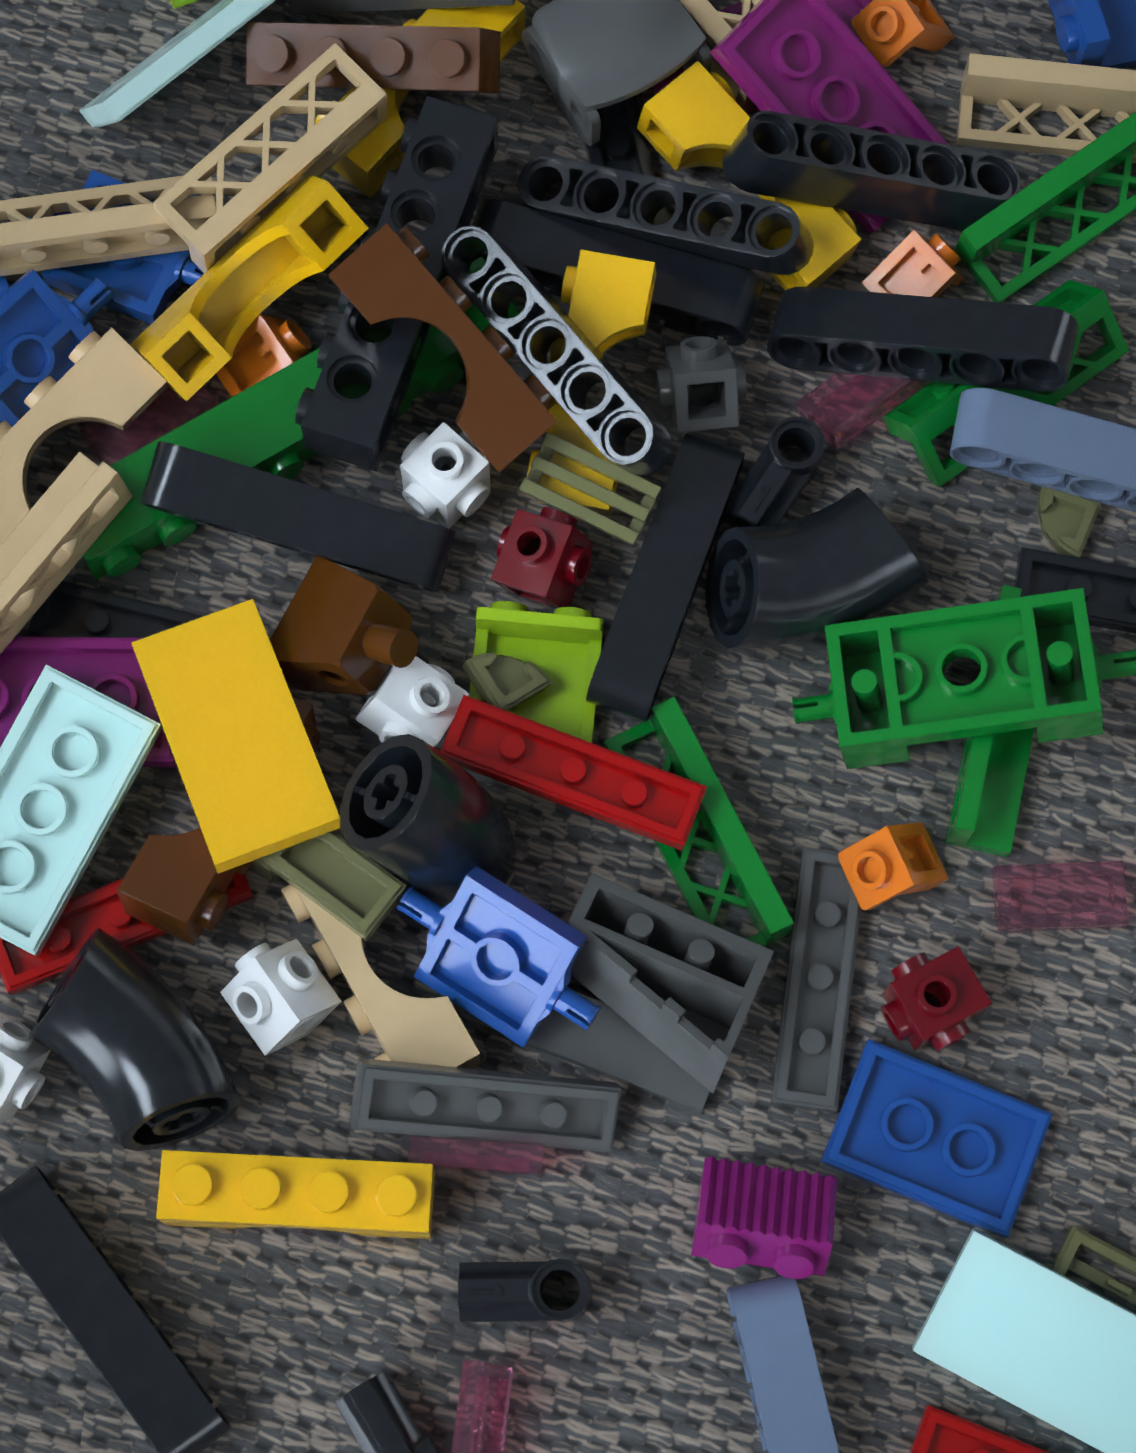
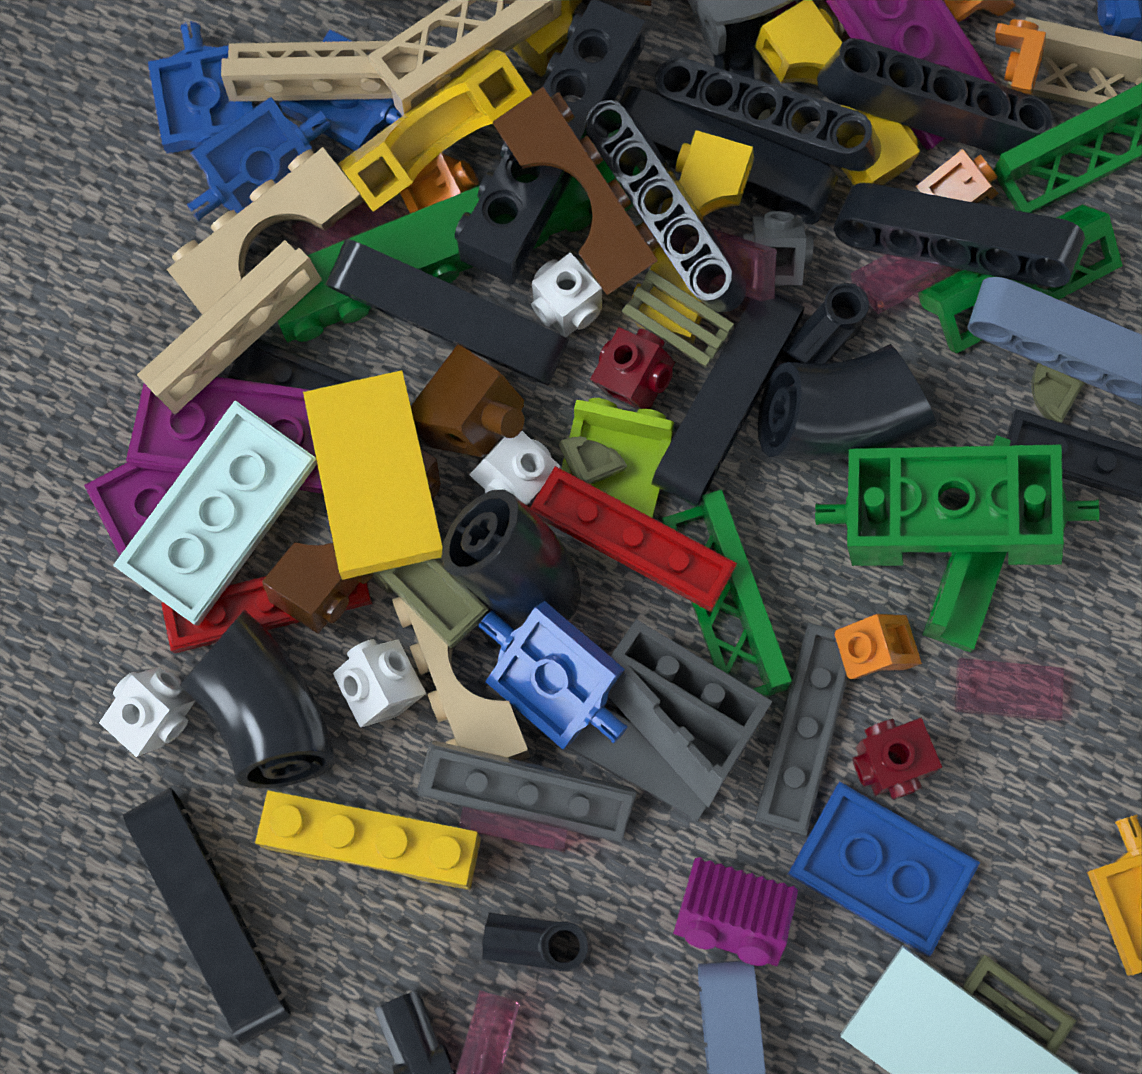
camera: 15 degrees right, 0 degrees up
(674, 404) = (753, 261): none -> clear pink tile
(974, 117) = (1022, 66): none -> orange bracket

